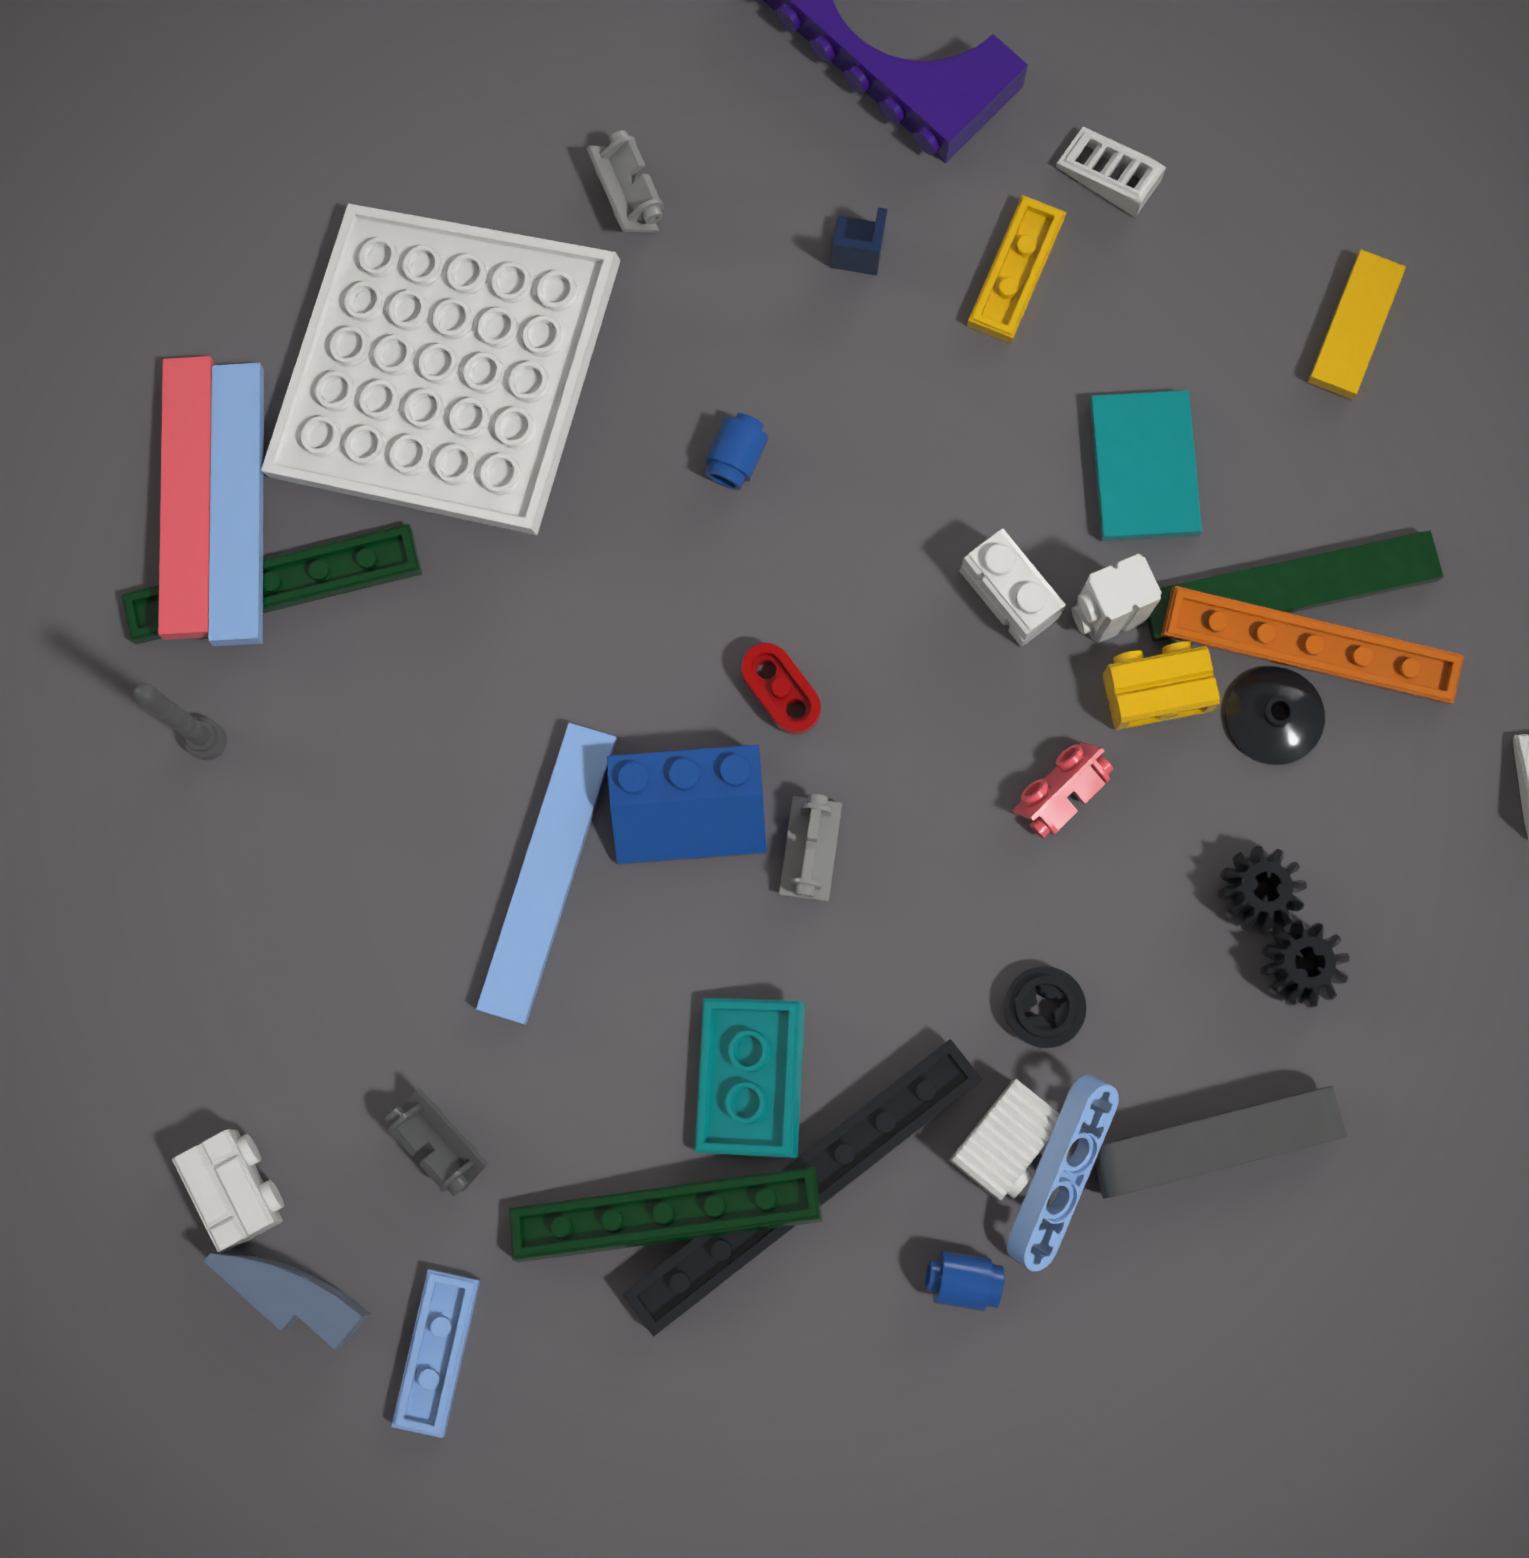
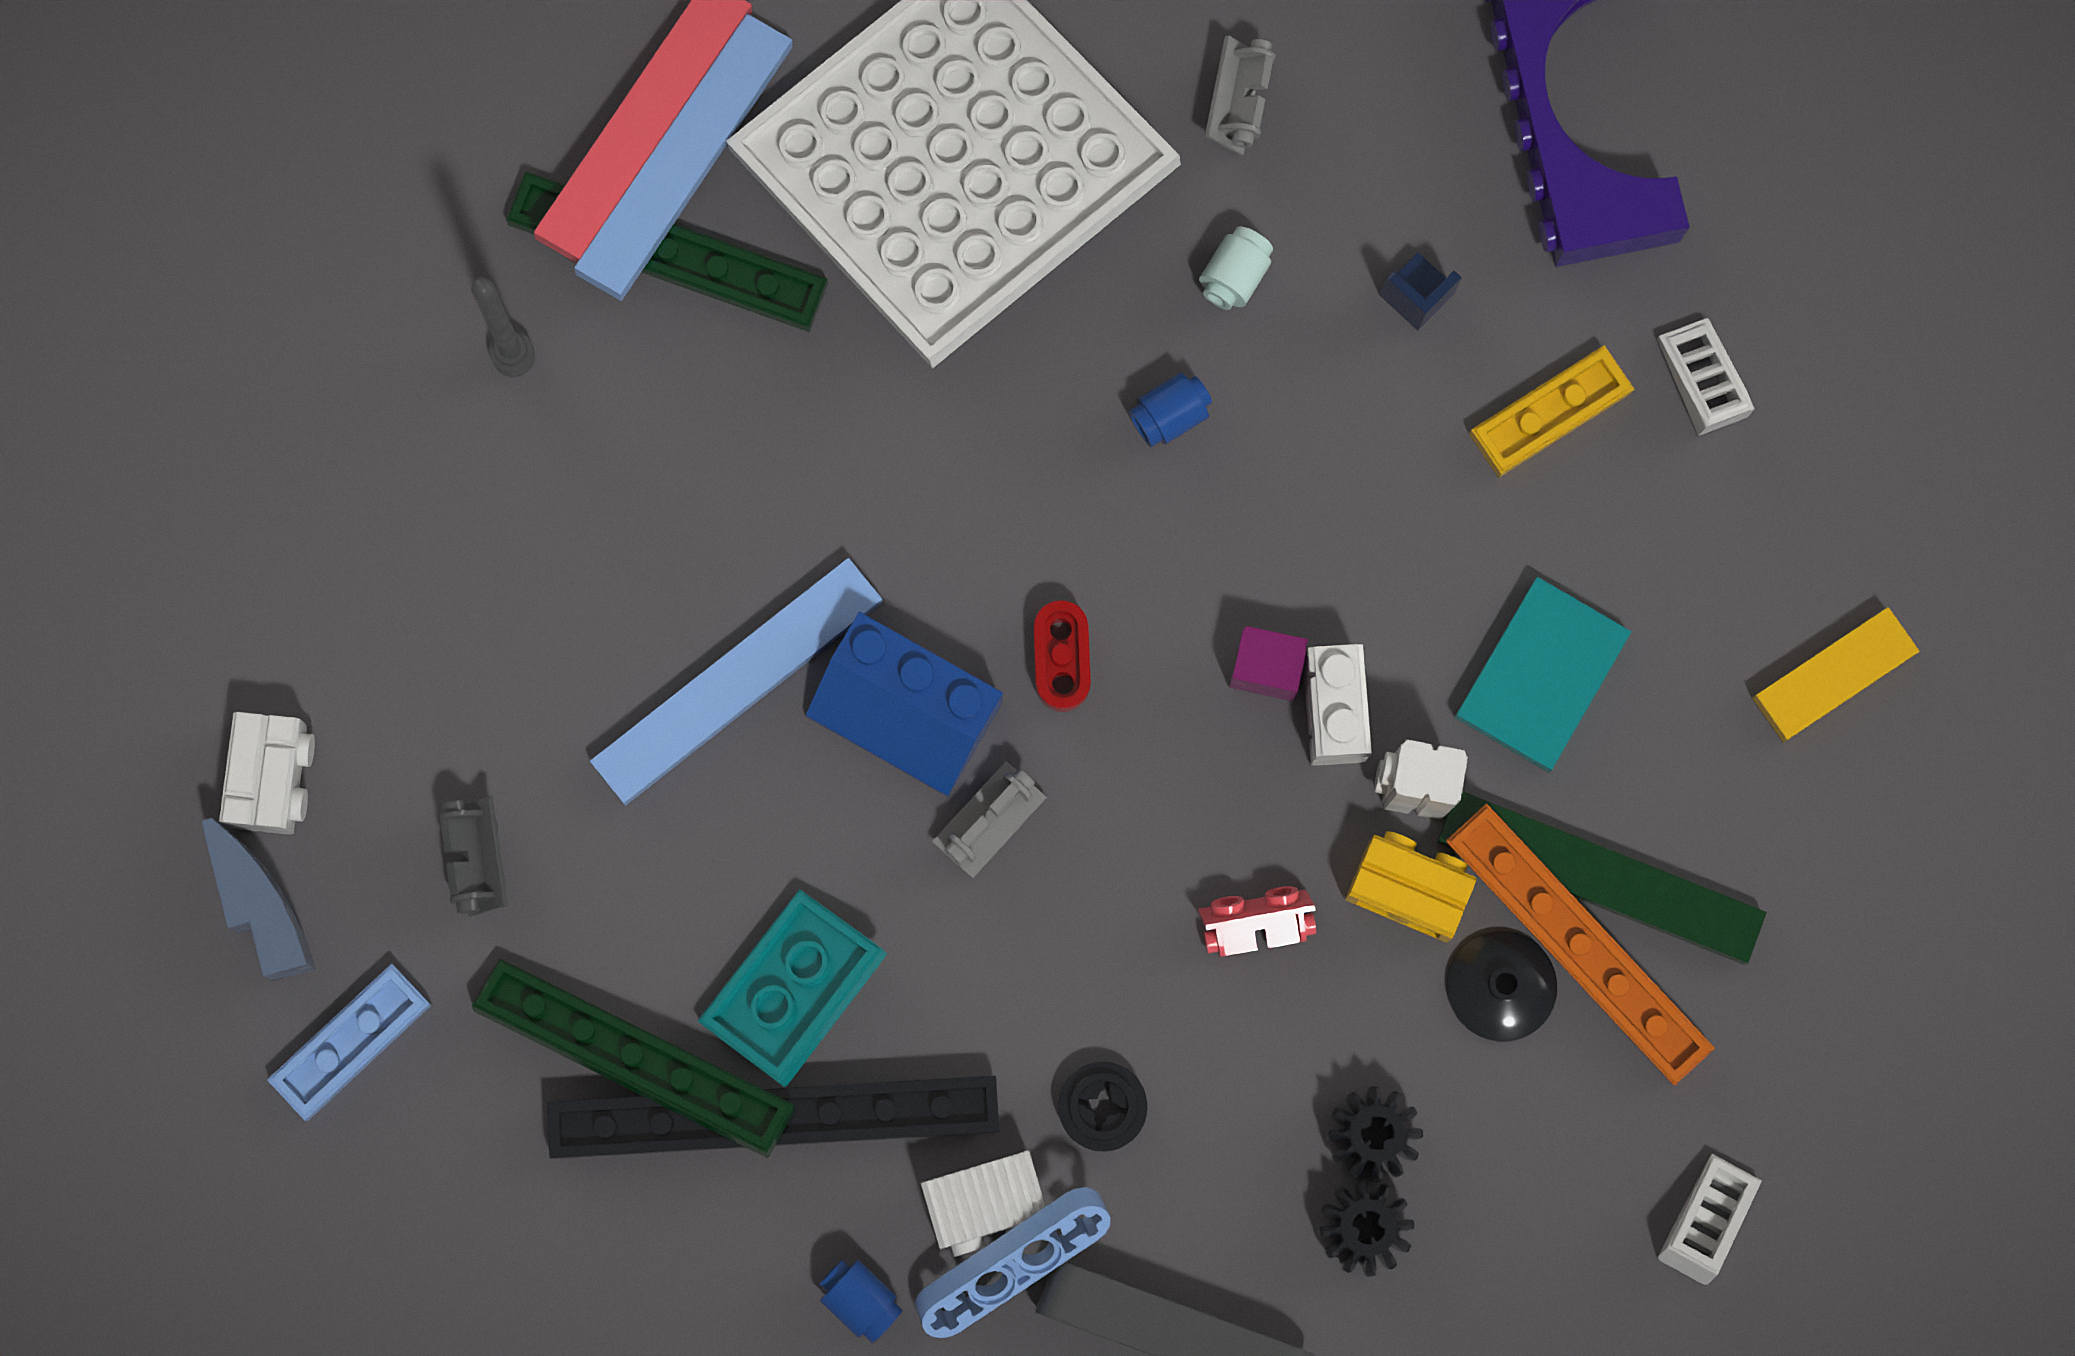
camera: 25 degrees right, 0 degrees up
(712, 314) = (1236, 268): none -> light aqua brick
(941, 590) = (1269, 663): none -> magenta panel

